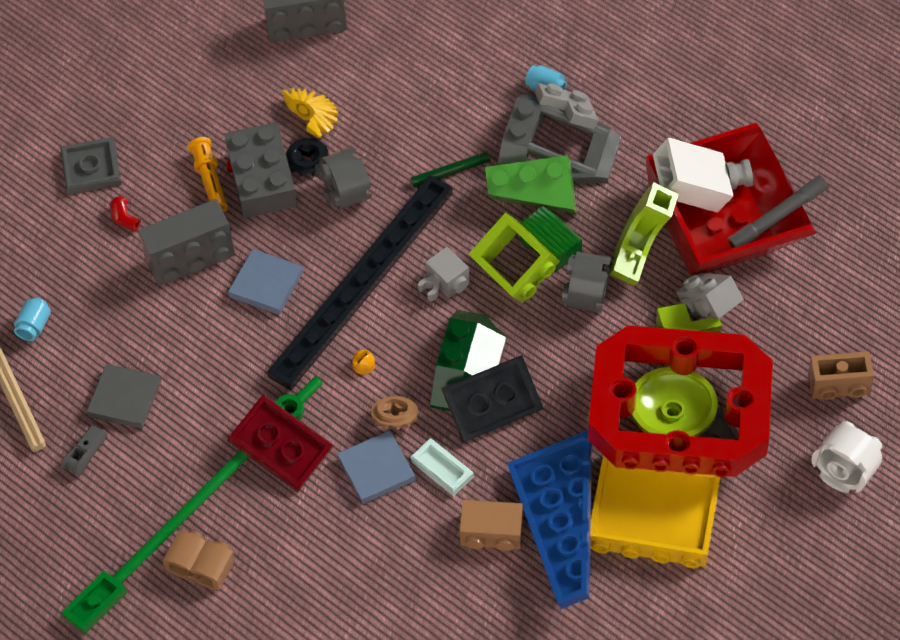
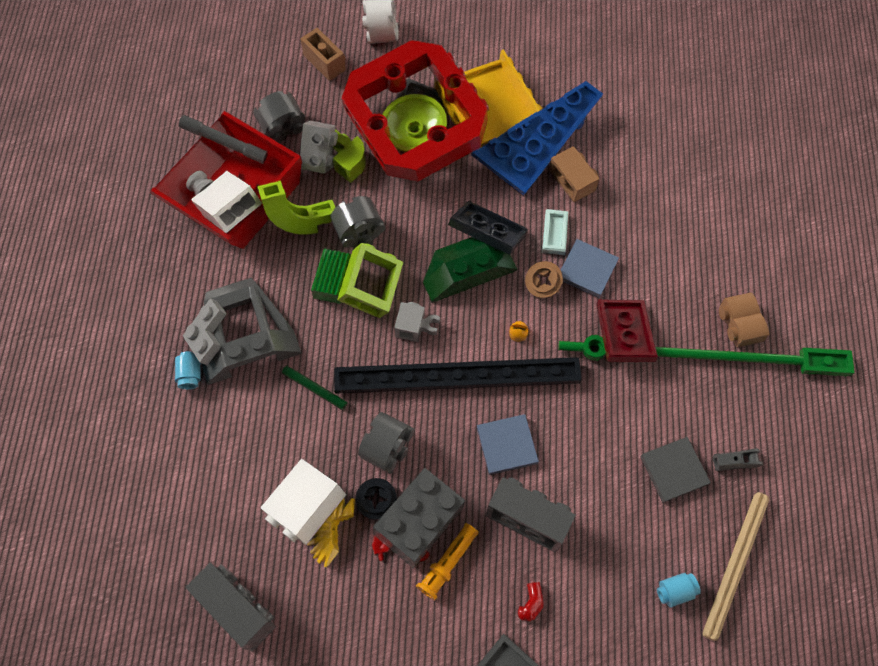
camera: 130 degrees left, 10 degrees up
(347, 98) = (302, 502): none -> white brick
(534, 183) = (295, 309): bright green wedge -> none
(778, 286) = (279, 116): none -> dark grey brick

